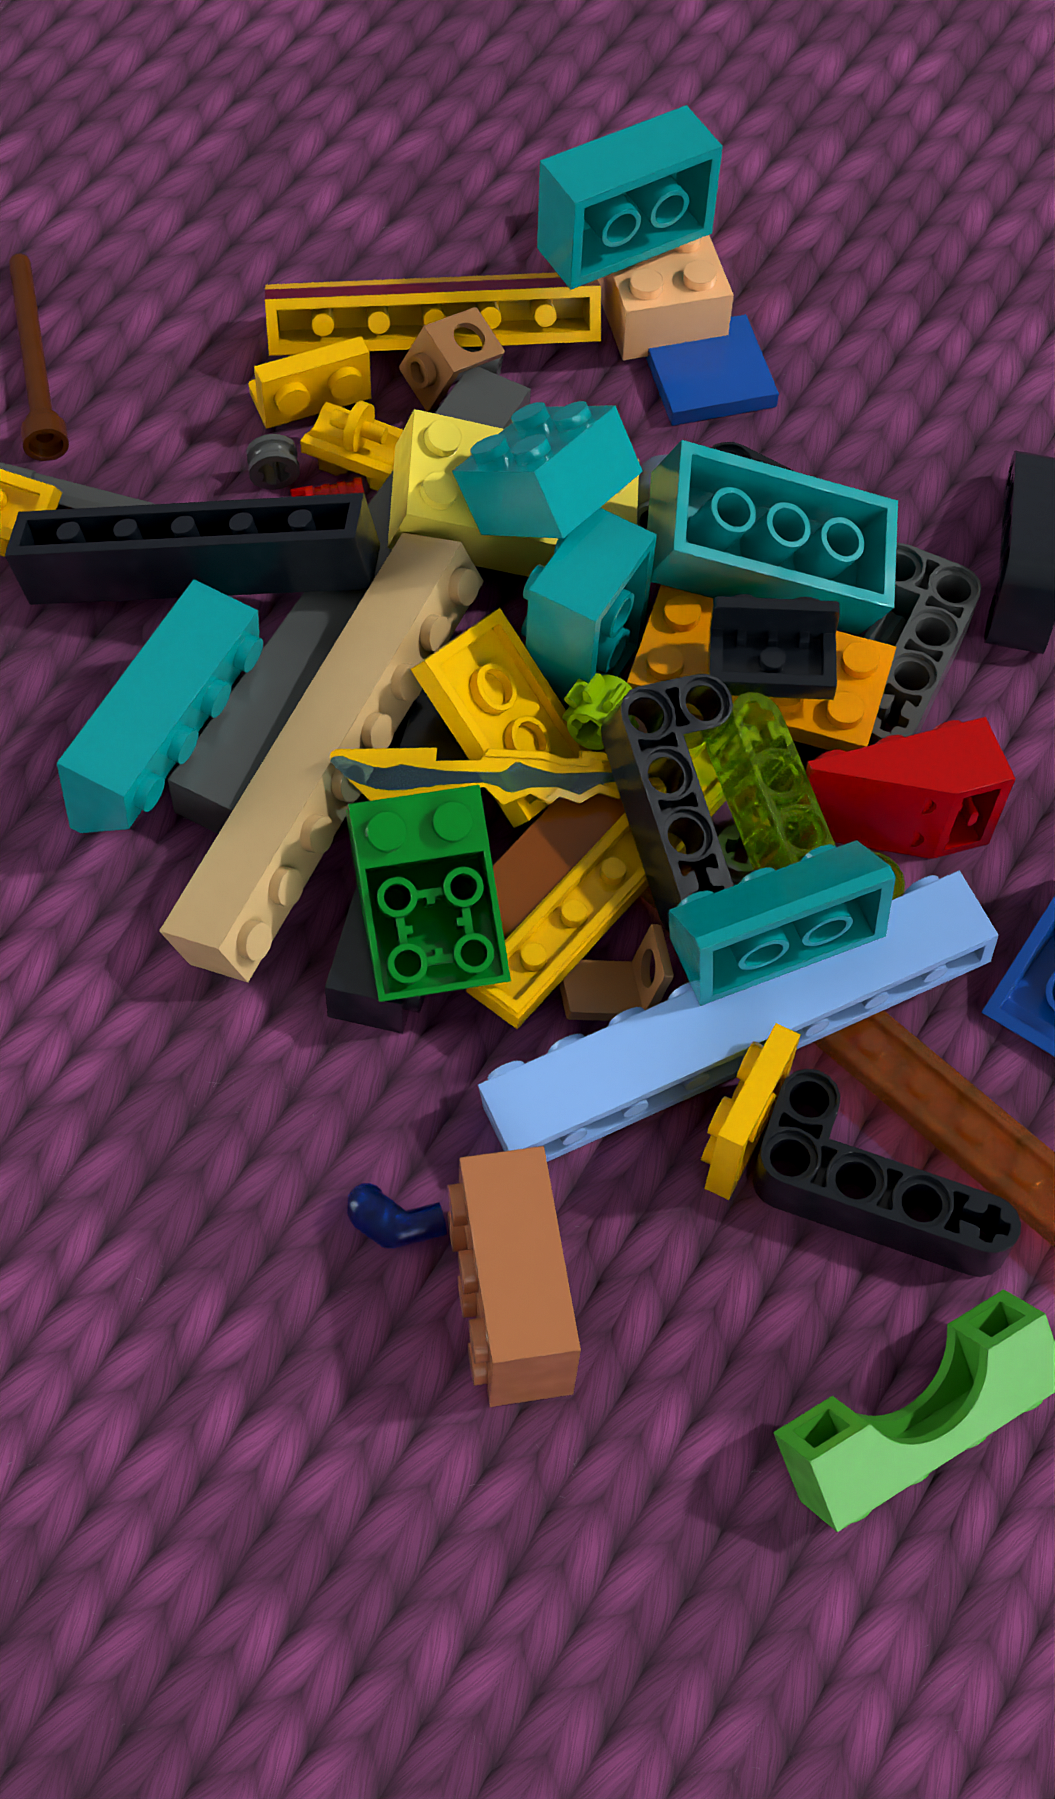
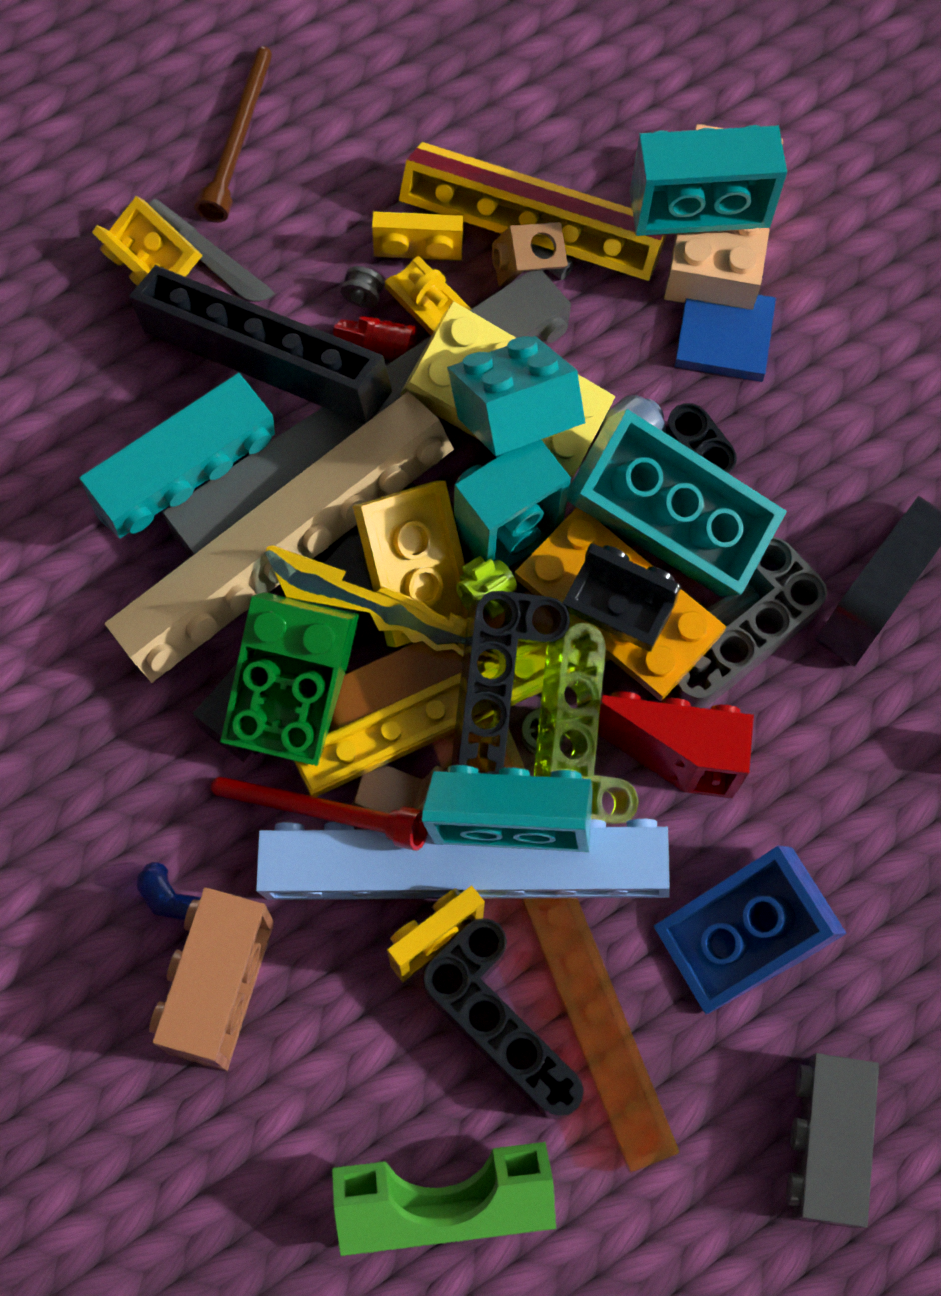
camera: 25 degrees right, 10 degrees up
(657, 997) = (400, 826): none -> red piece

